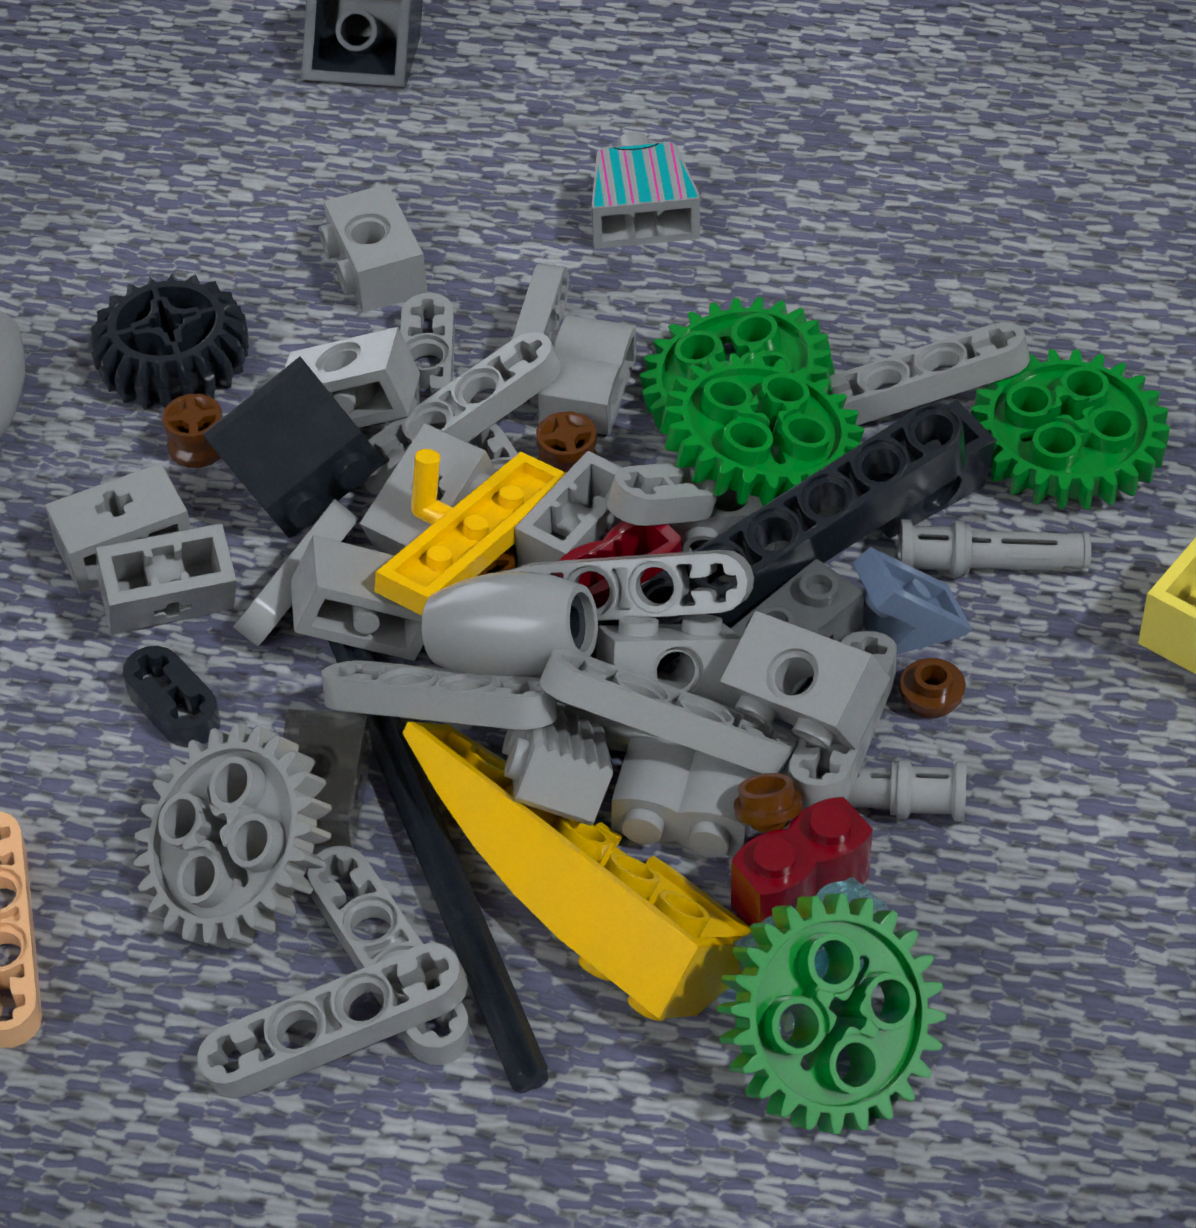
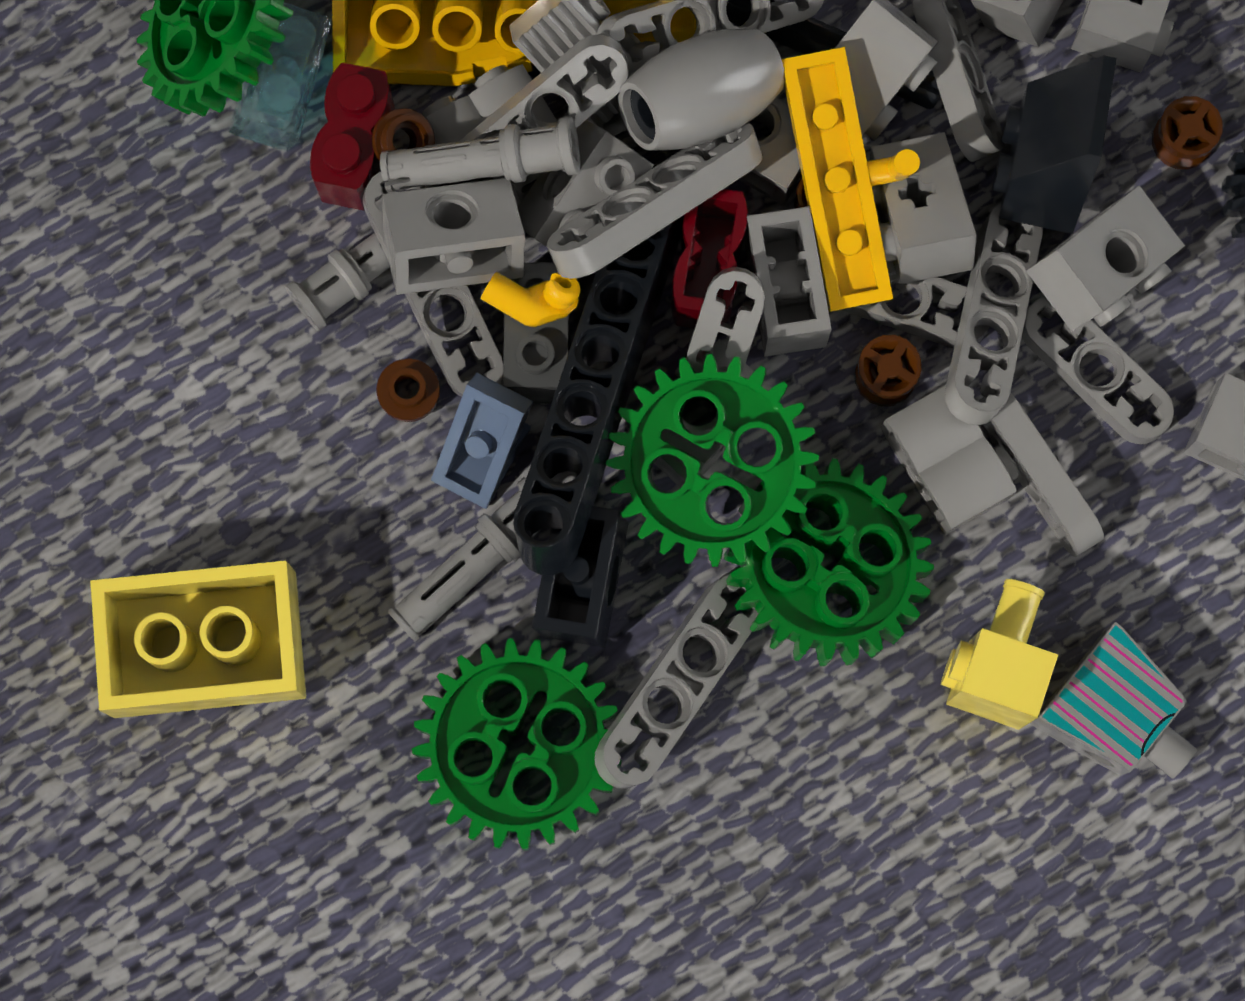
camera: 135 degrees right, 30 degrees up
(697, 683) = (509, 154): none -> light grey pin
(698, 230) = (997, 669): none -> light yellow brick
(786, 598) = (535, 304): none -> yellow arm

